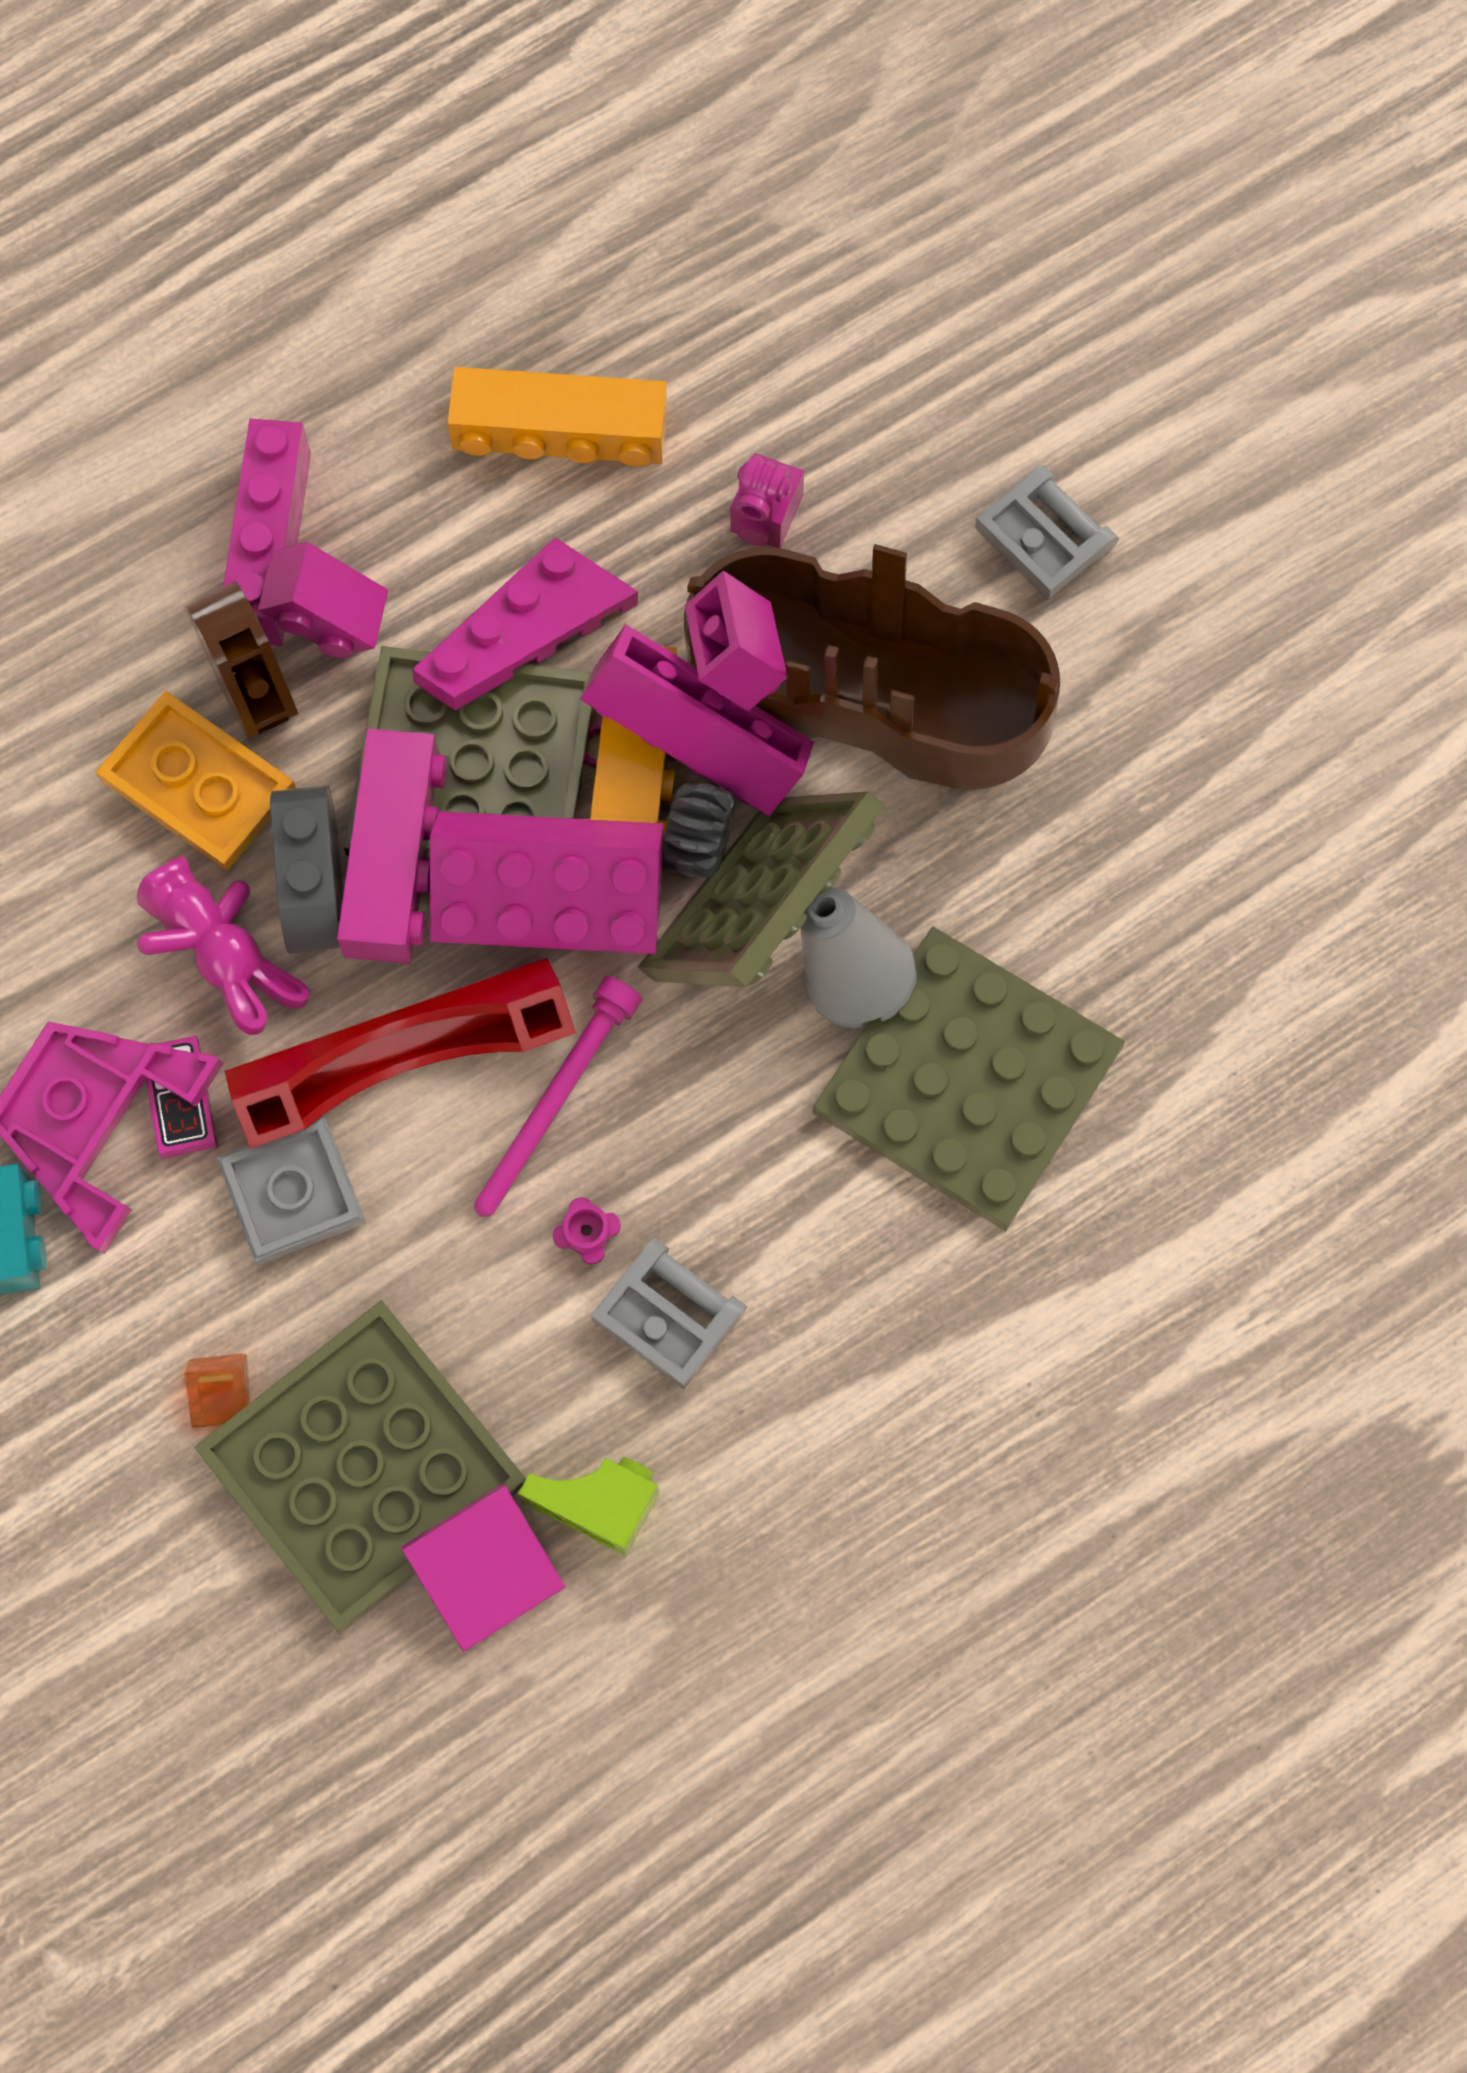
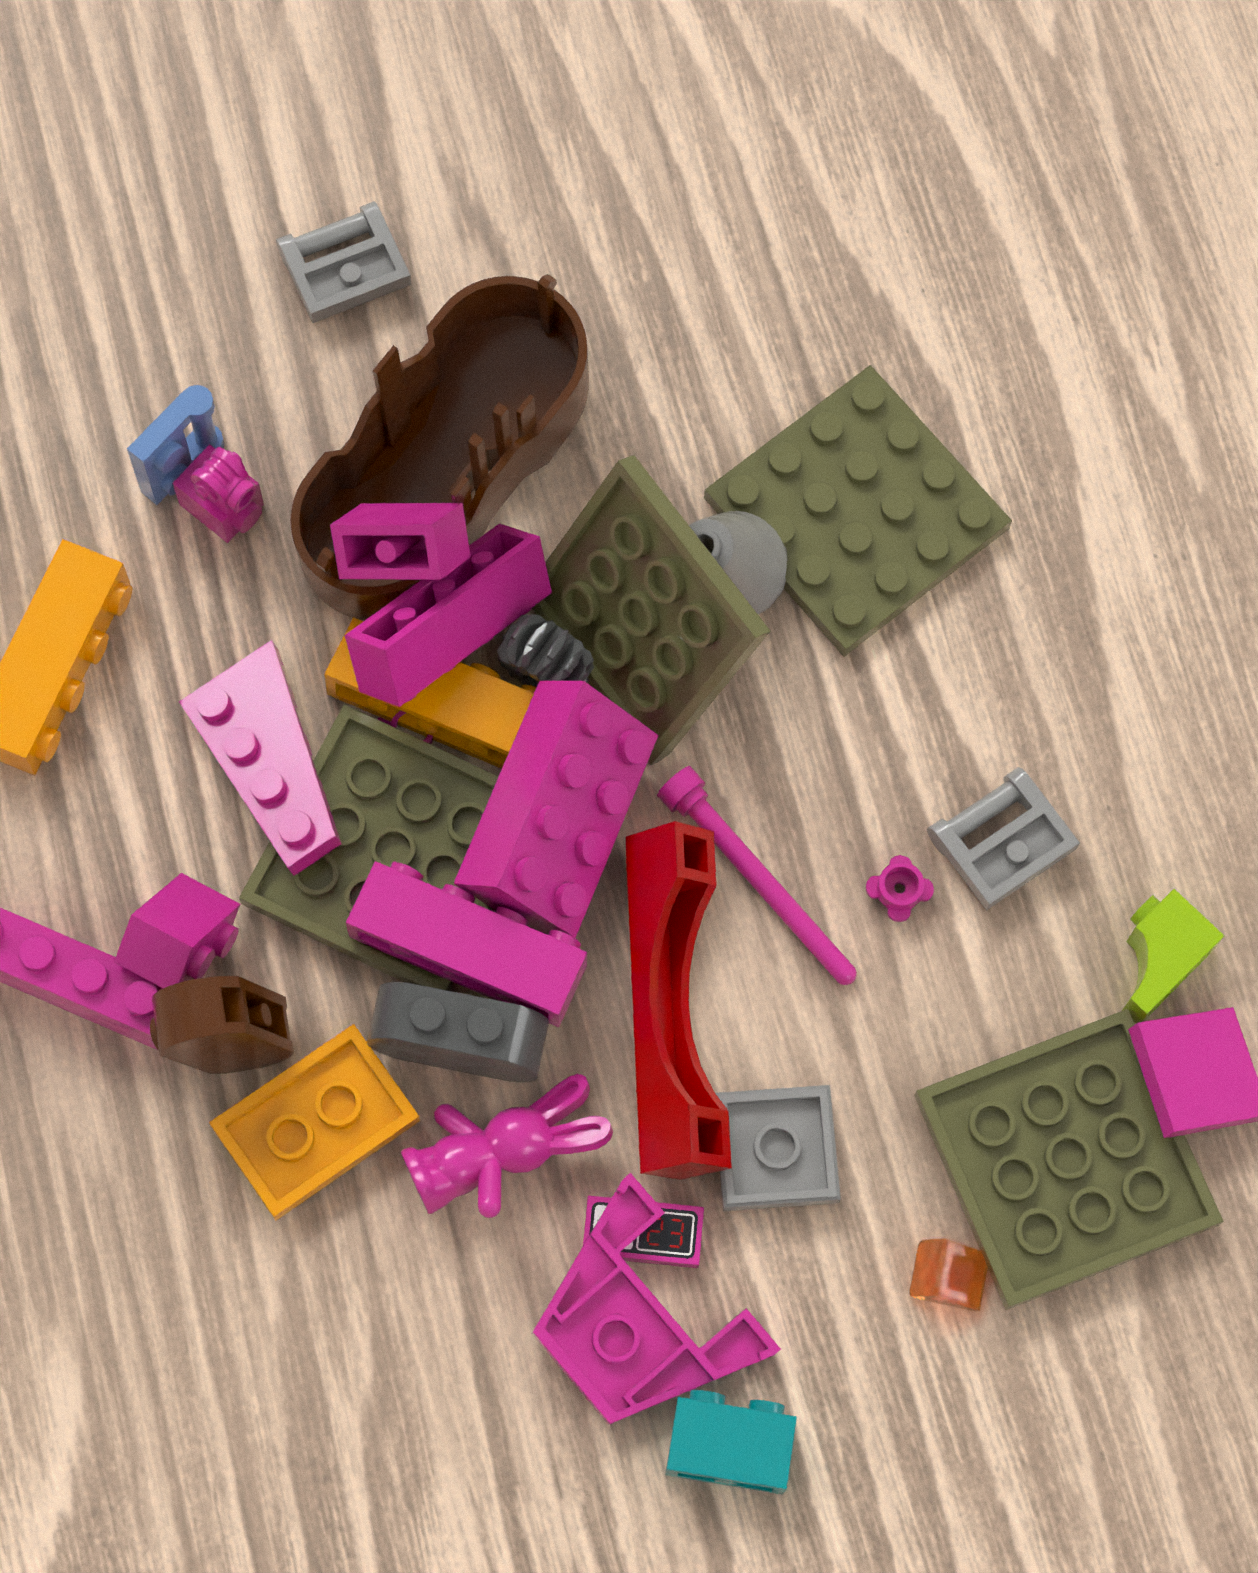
camera: 75 degrees left, 0 degrees up
(778, 432) = (163, 450): none -> medium blue plate

